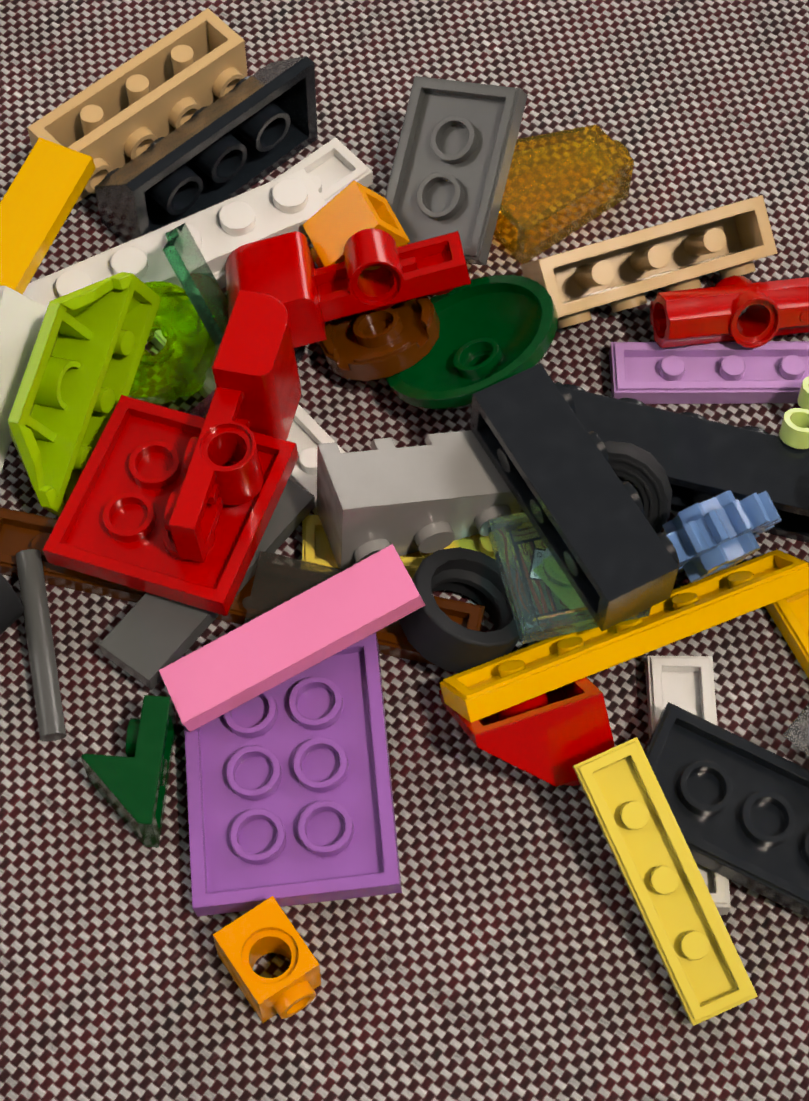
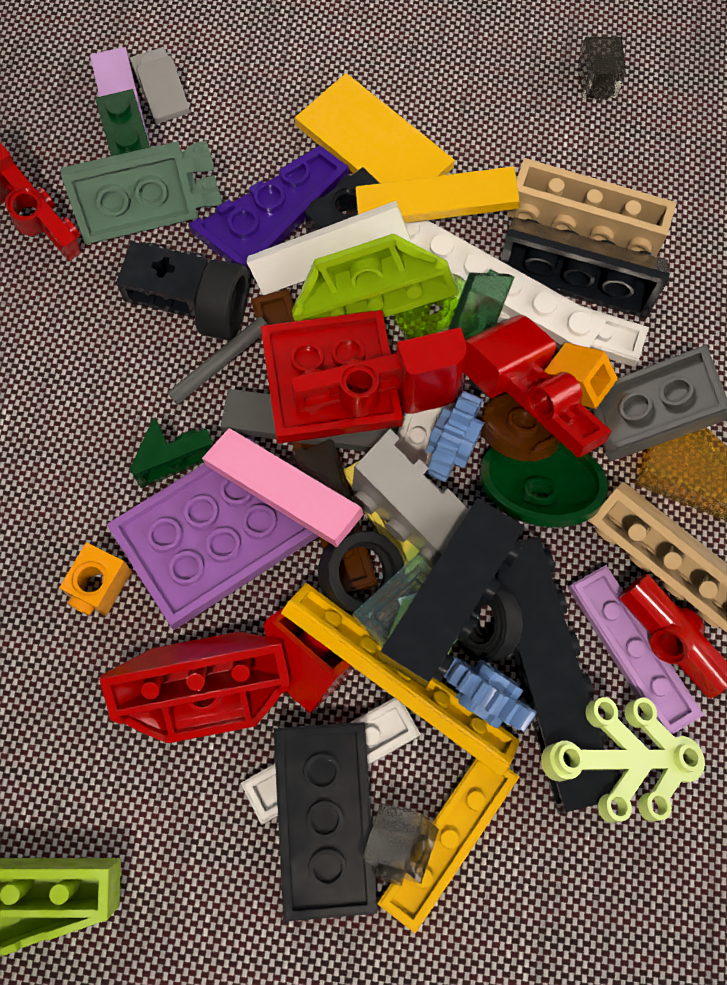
camera: 60 degrees right, 10 degrees up
(350, 397) = (454, 436): none -> medium blue gear
(506, 881) = (198, 686): none -> red wedge
(664, 881) = (247, 775): light yellow tile -> none

